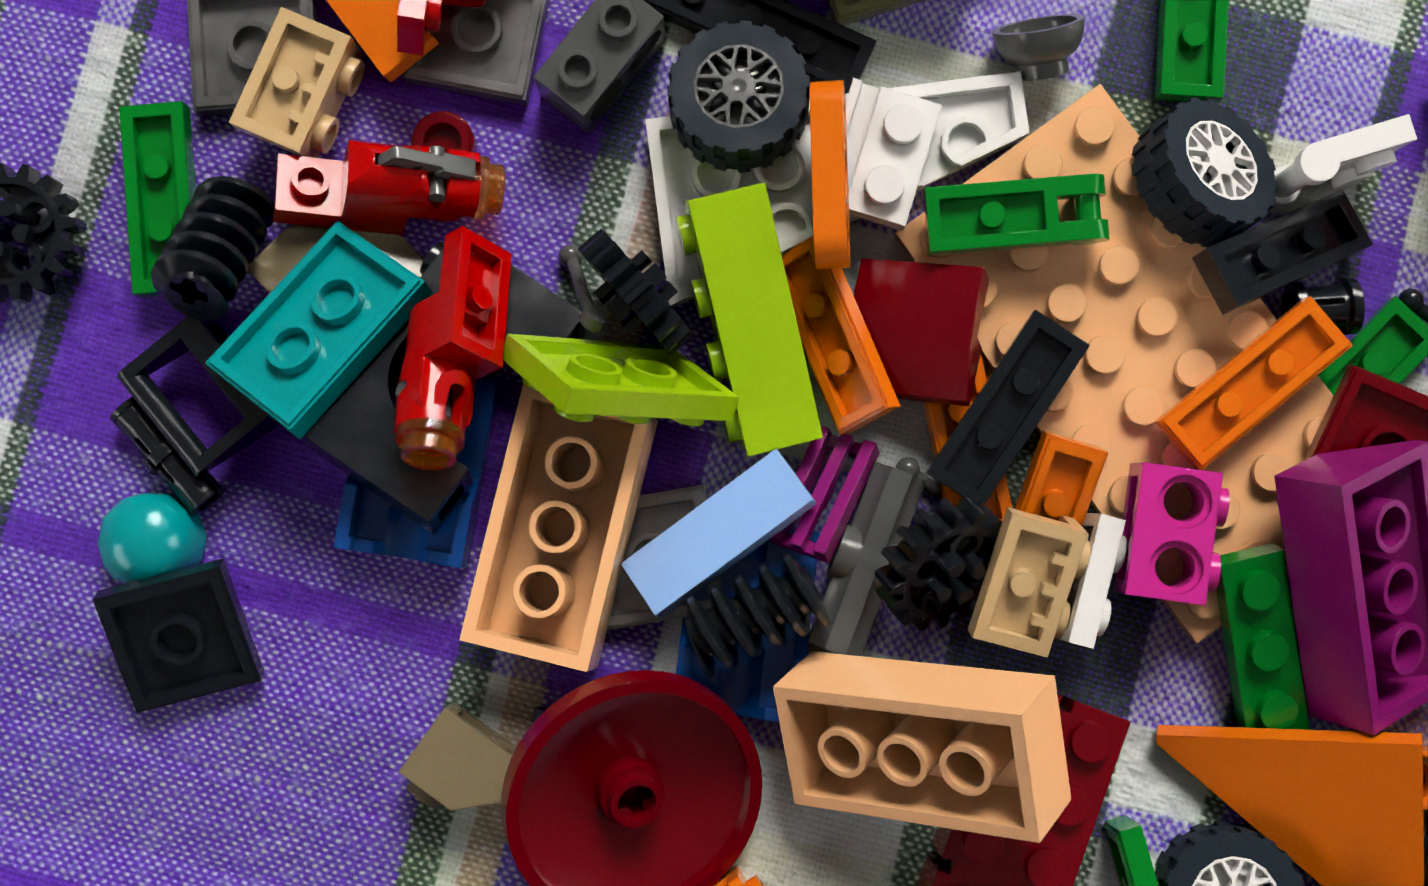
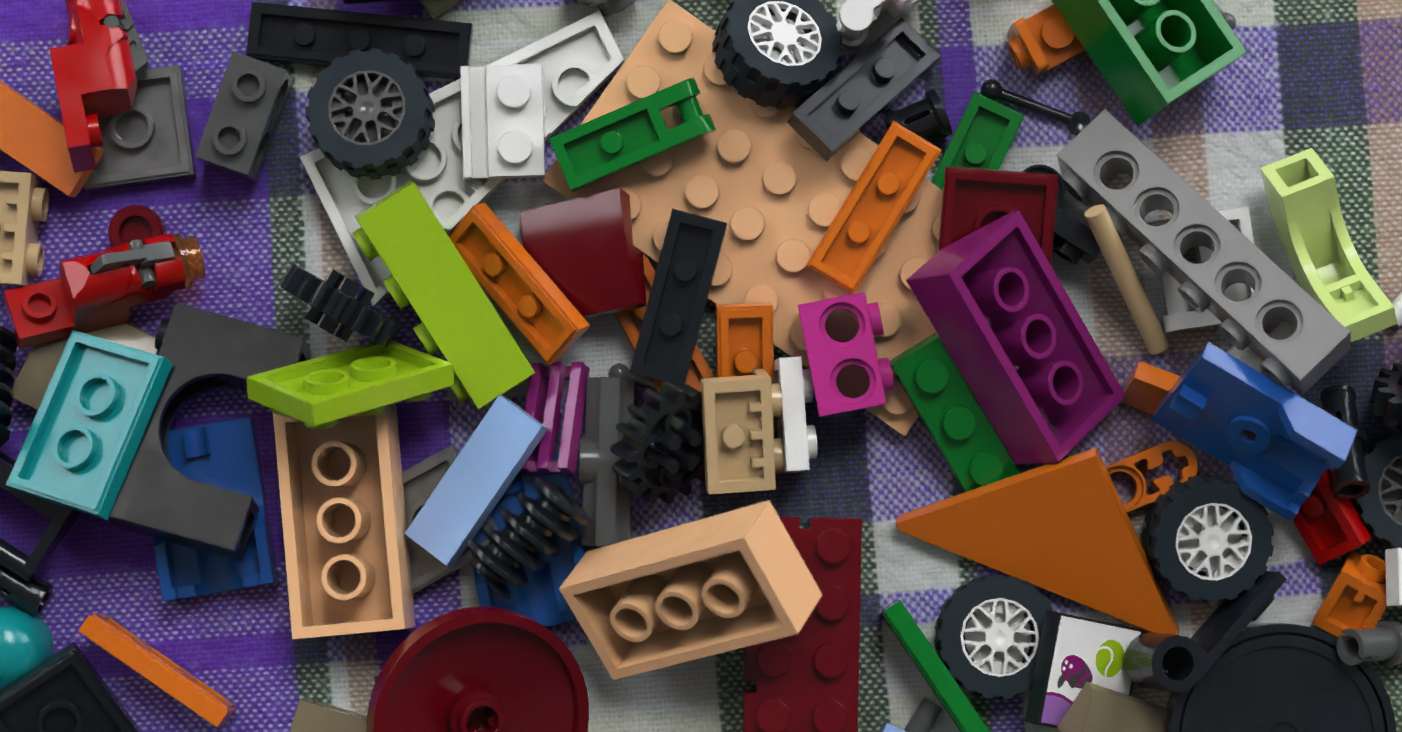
camera: 20 degrees left, 0 degrees up
(304, 618) = (158, 668): none -> orange tile
(450, 346) = (203, 402): red plate -> none
(590, 317) = (310, 339): dark grey hinge -> none
(829, 174) = (466, 156): orange beam -> none

